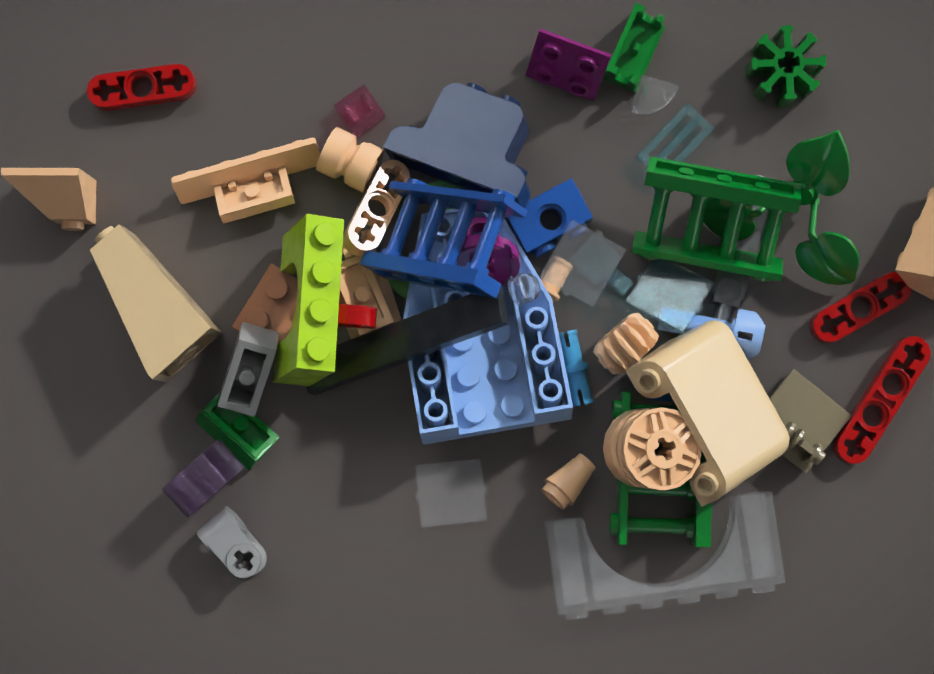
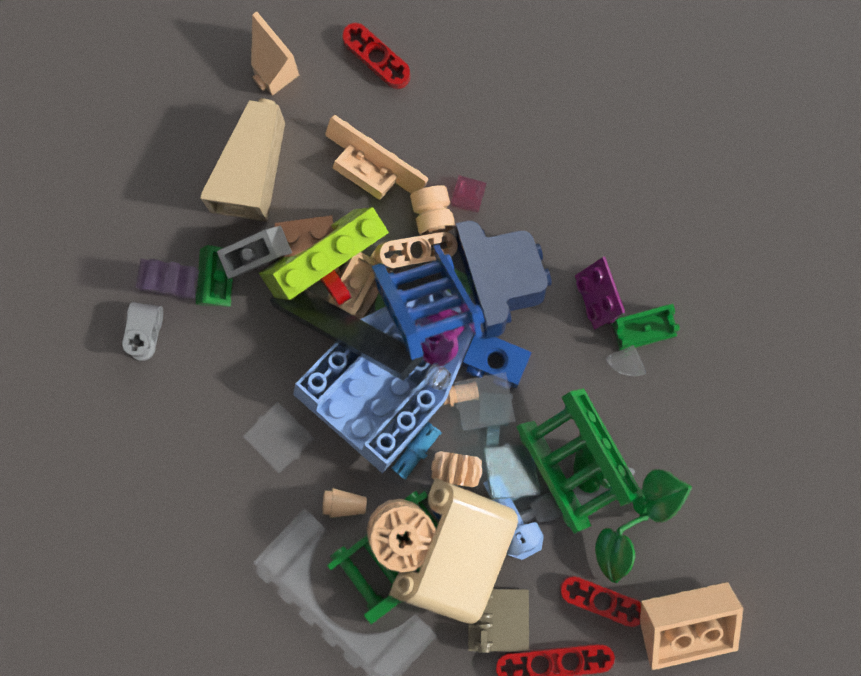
camera: 60 degrees right, 5 degrees down
(696, 120) = (616, 401): clear light blue tile -> none
(783, 51) = (724, 429): green gear -> none

